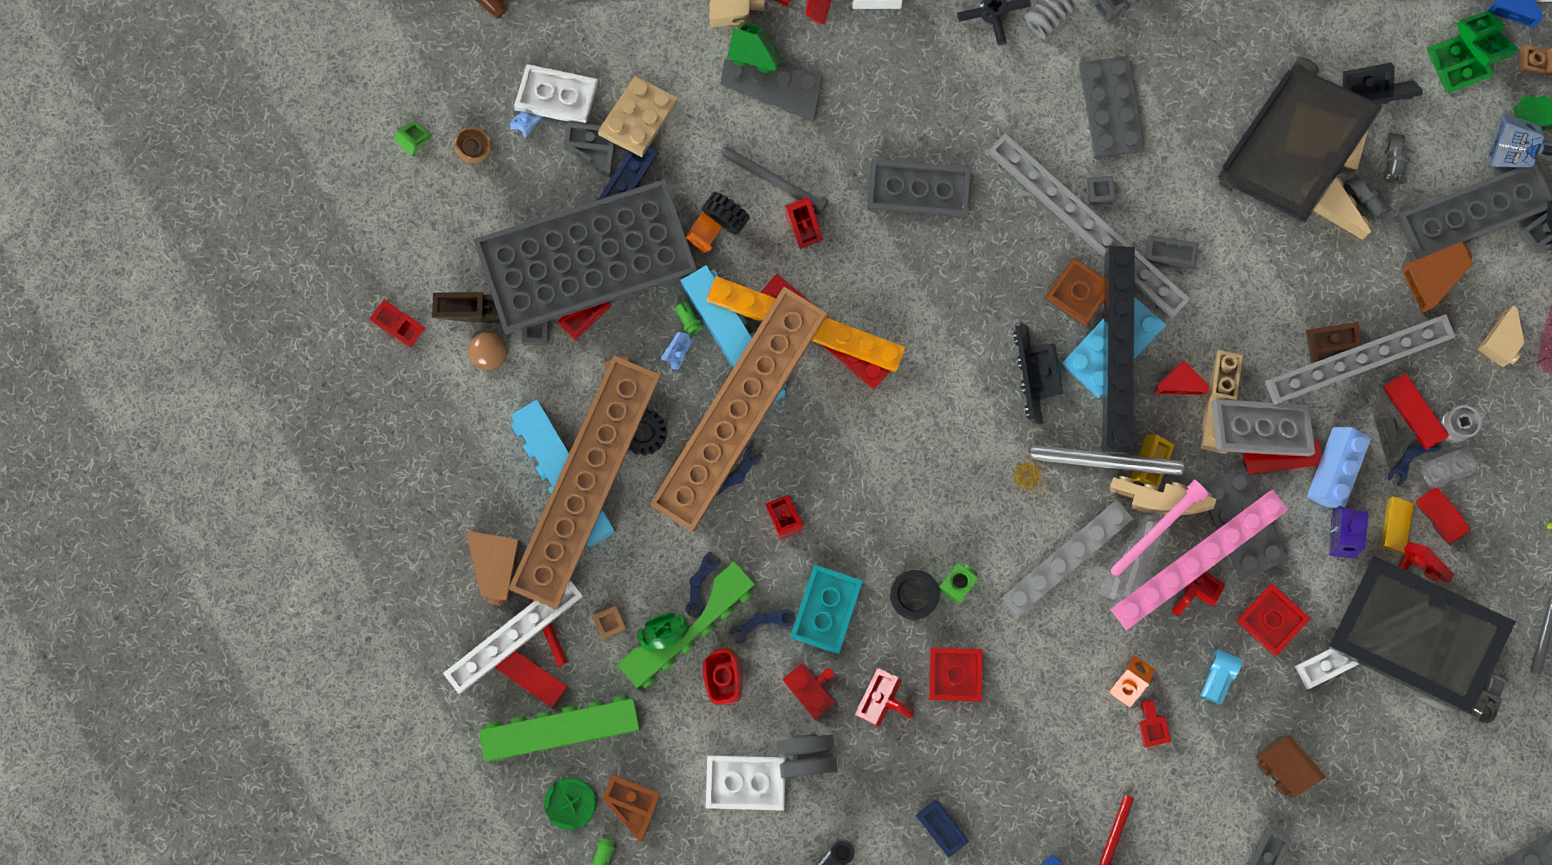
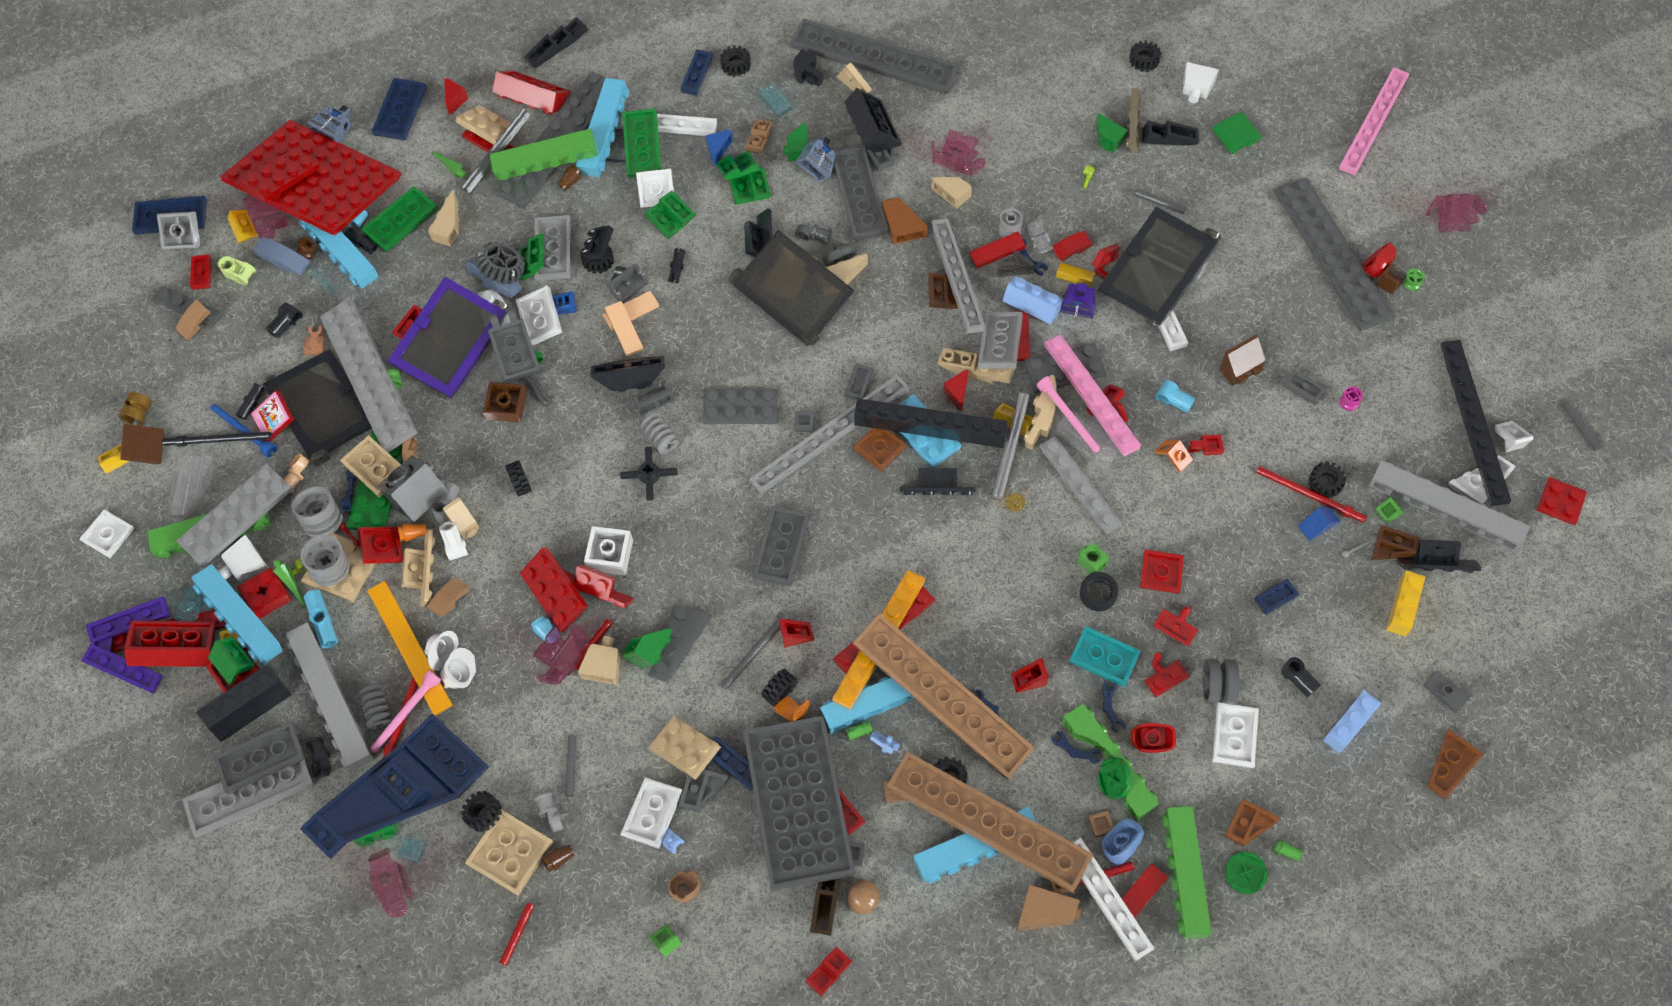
camera: 80 degrees left, 15 degrees down
(587, 648) = (1122, 841): none -> medium blue piece
(1273, 619) = (1136, 358): red plate -> none

